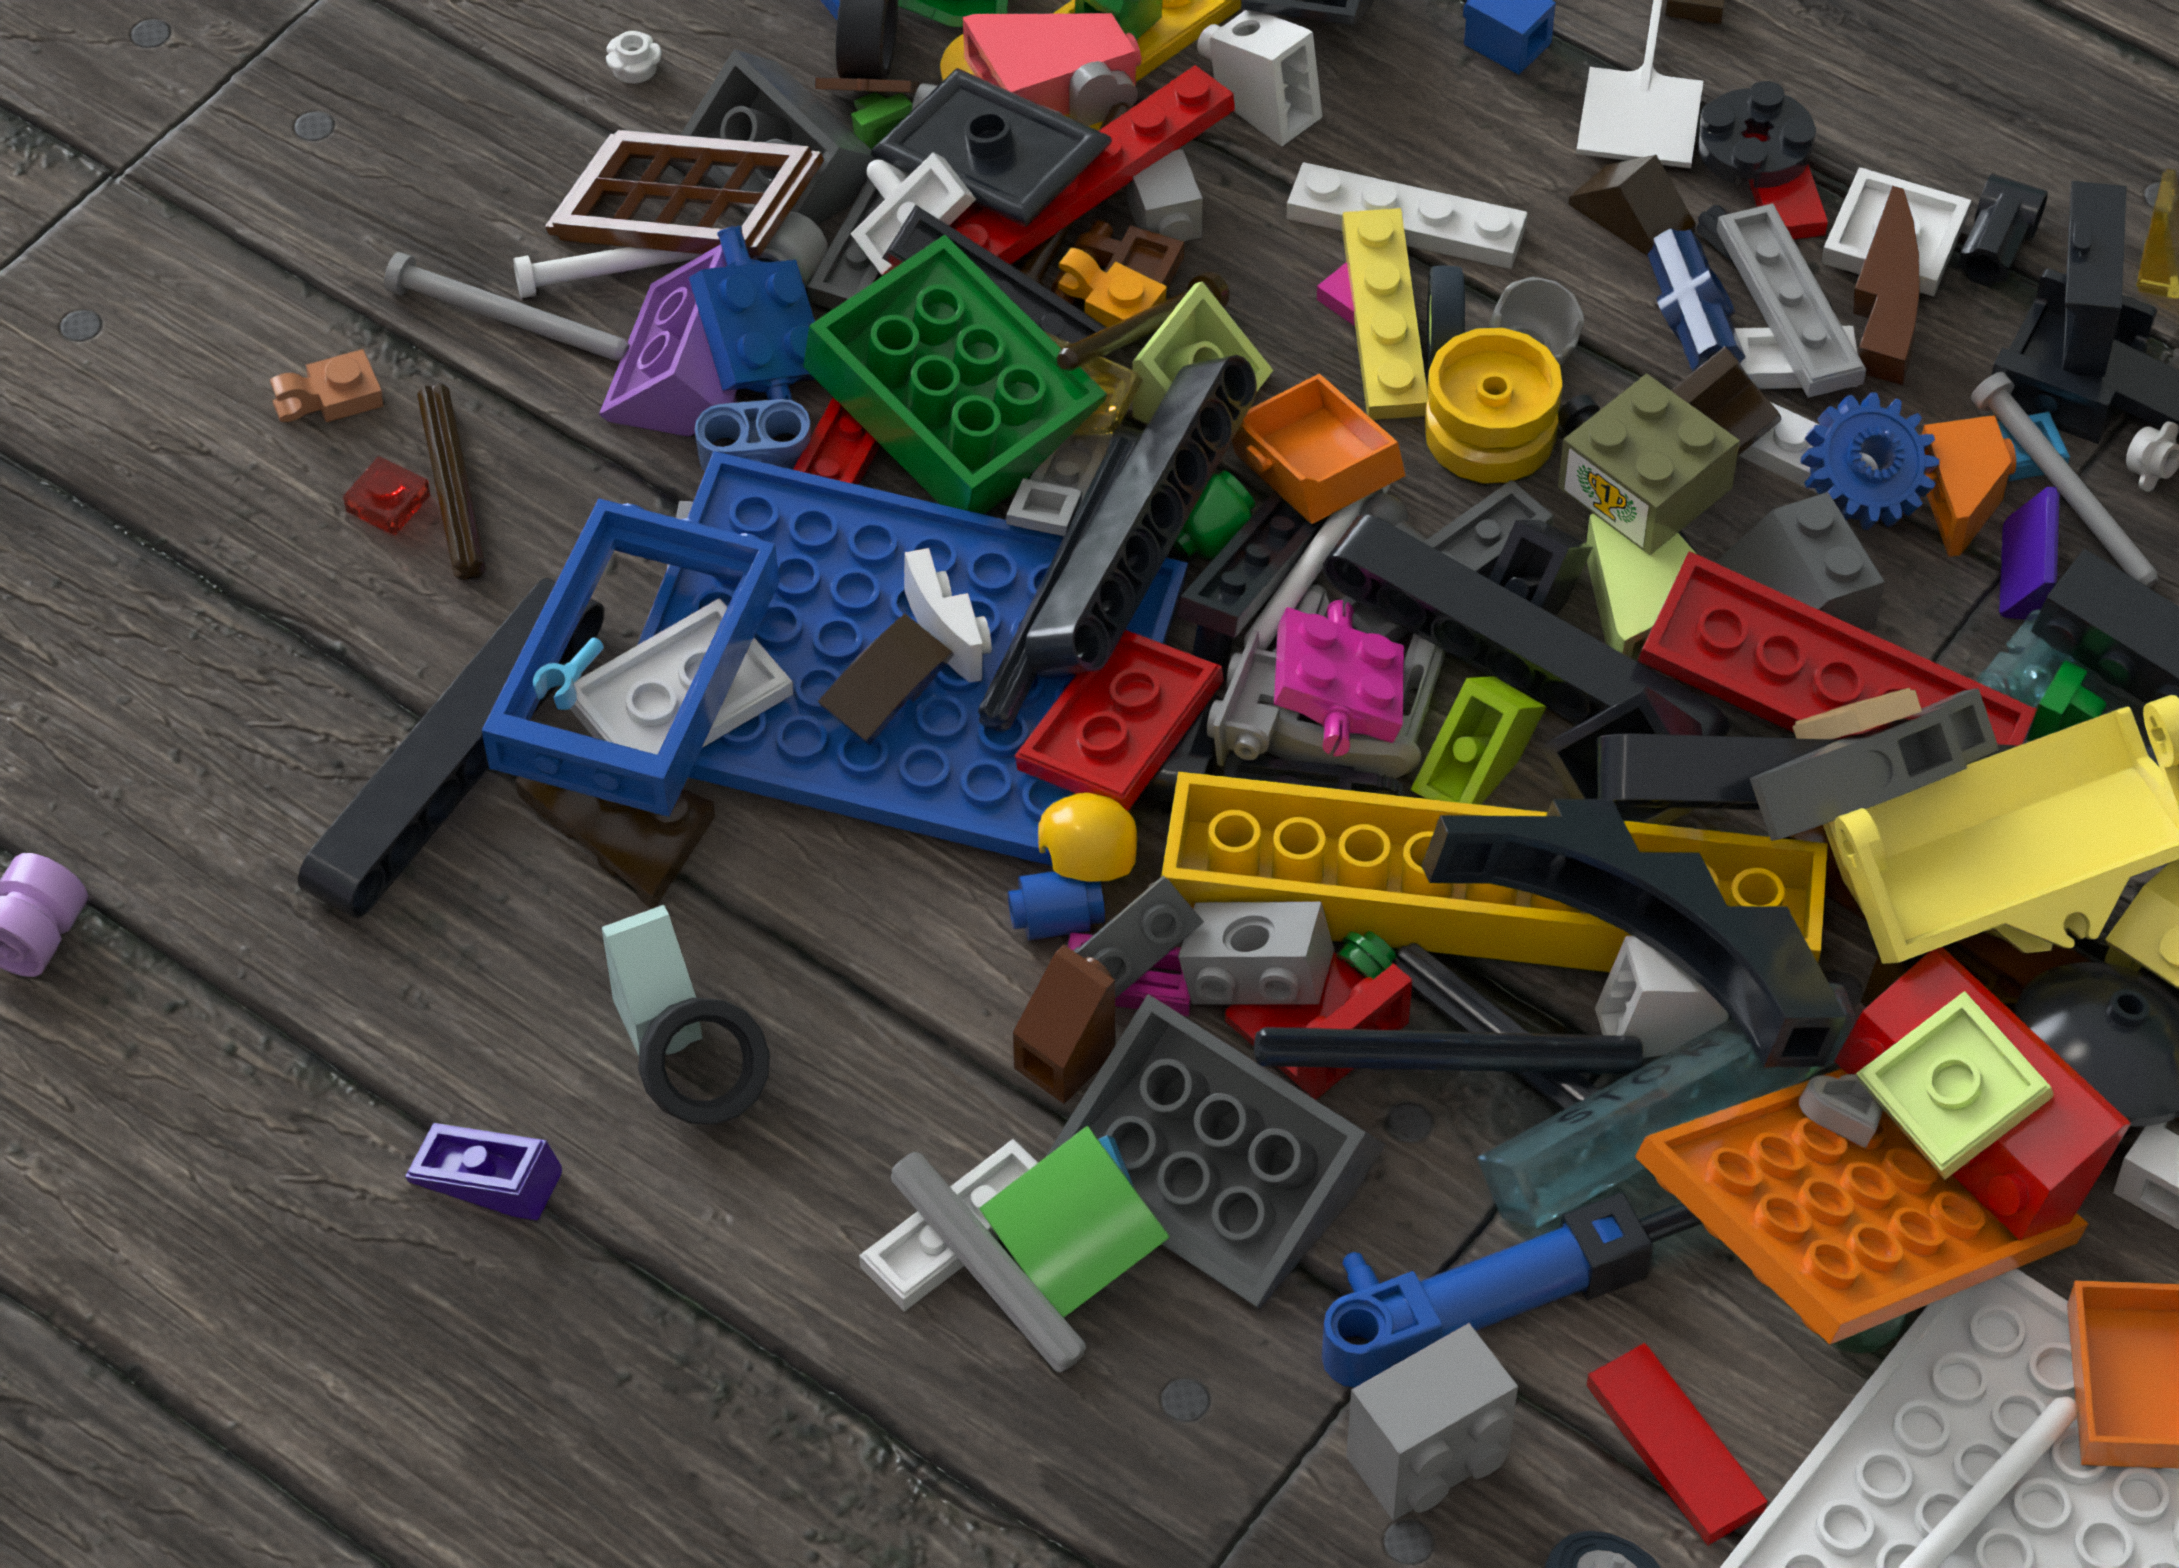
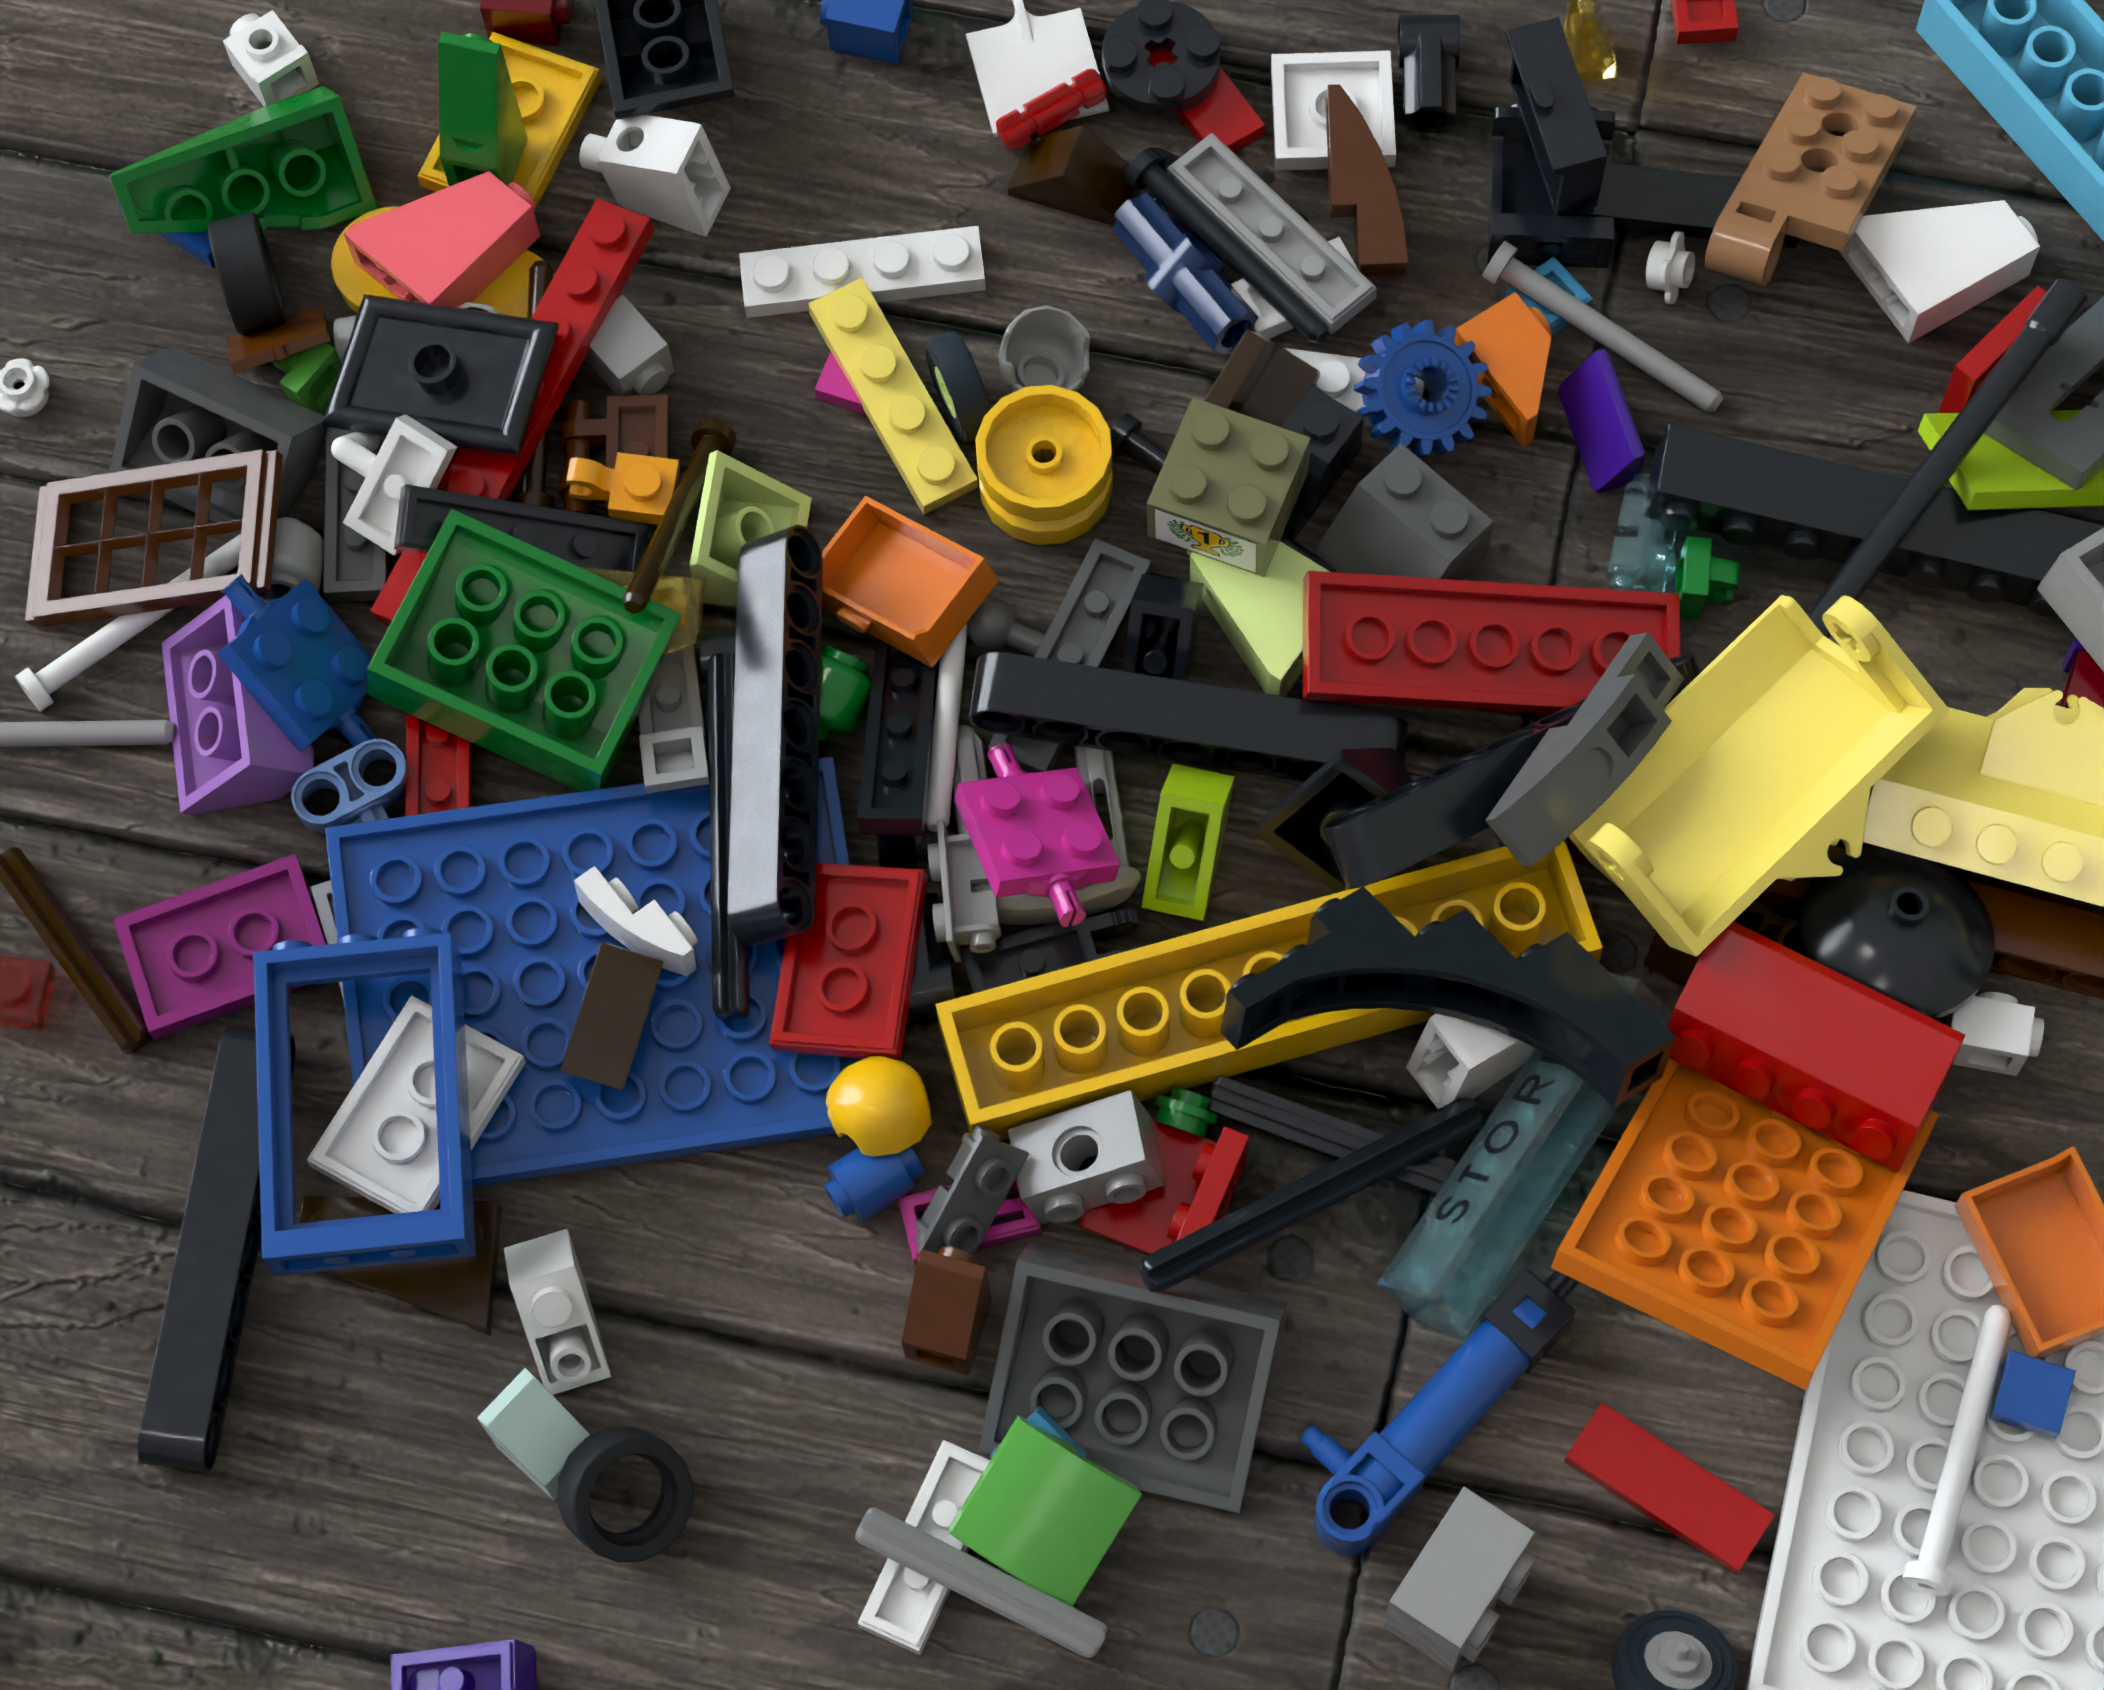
camera: 20 degrees left, 15 degrees up
(544, 509) = (197, 948): none -> magenta plate
(566, 675) = (318, 1162): medium azure hand -> none
(719, 904) = (556, 1312): none -> white slope
(1096, 89) = (509, 260): light grey tile -> none
(1636, 142) = (1051, 109): none -> red axle
(1700, 215) = (1148, 172): none -> black bar
(1763, 480) = (1333, 446): none -> black slope
(1841, 1107) = (1697, 1109): light grey tile -> none
(1859, 716) = (1546, 703): tan tile -> none
(1955, 1085) = (1792, 1056): yellowish green tile -> none
(2068, 1486) = (2032, 1394): none -> blue tile

